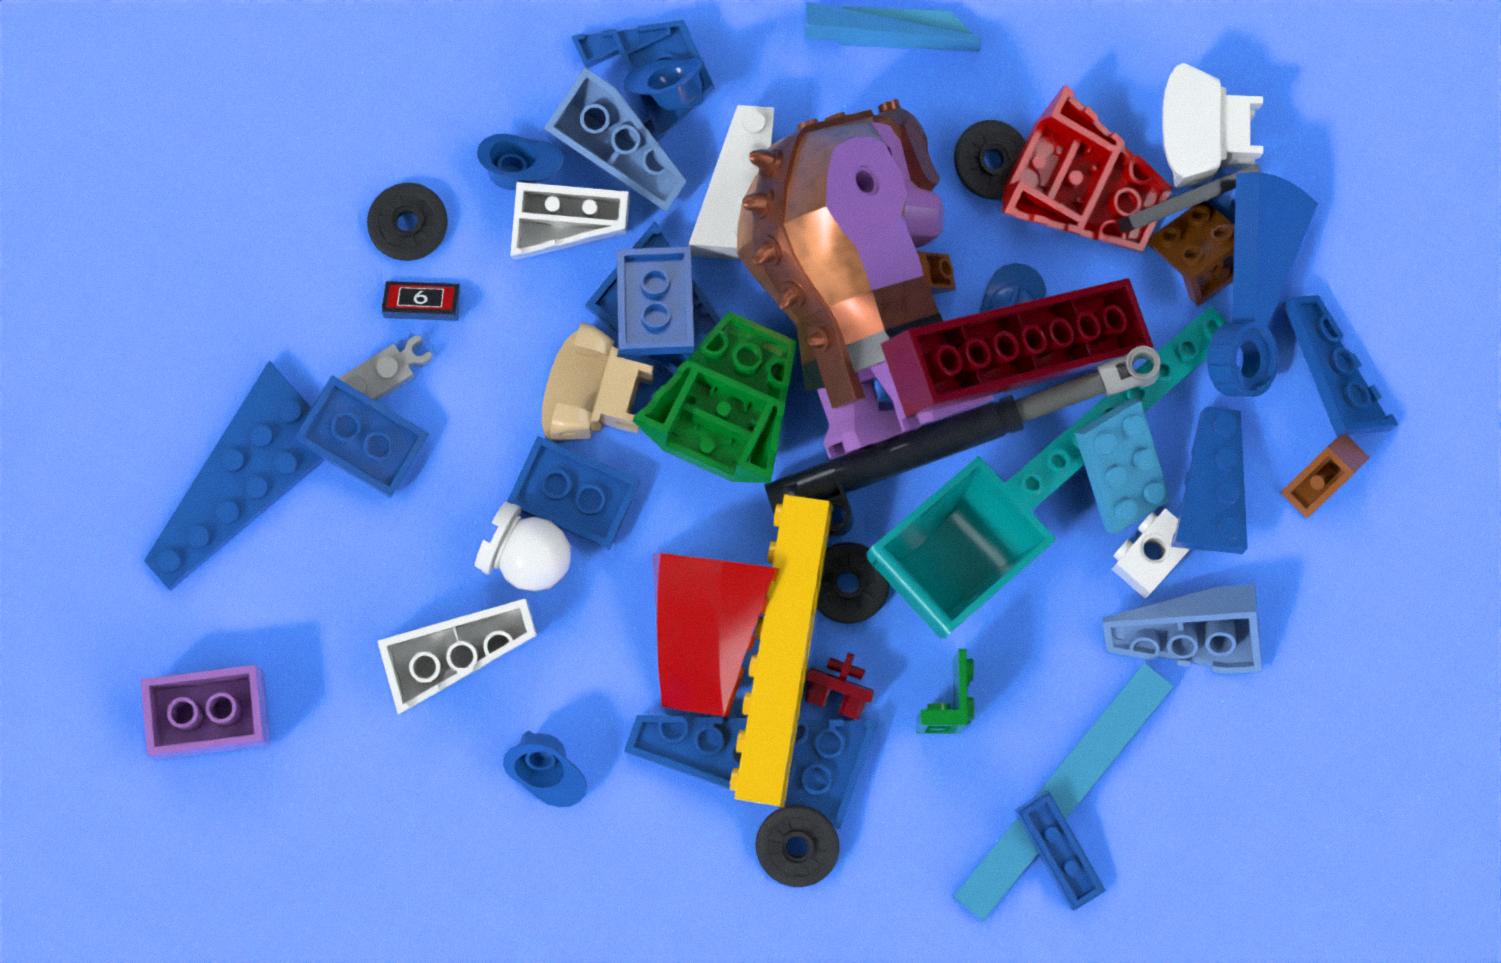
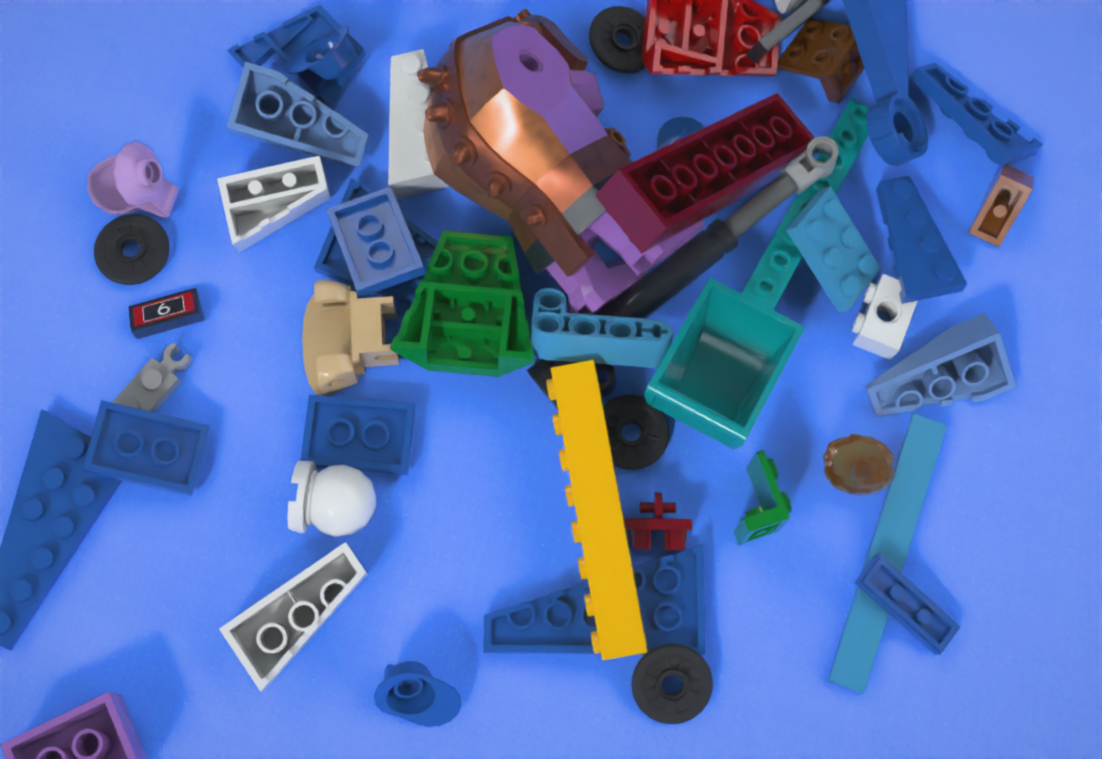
camera: 20 degrees left, 5 degrees down
(428, 153) = (131, 183): none -> lavender animal
(518, 159) = (208, 162): blue piece -> none
(705, 628) = (520, 512): red wedge -> none
(839, 477) = (595, 337): none -> dark azure beam
(1063, 696) = (859, 465): none -> clear orange hair

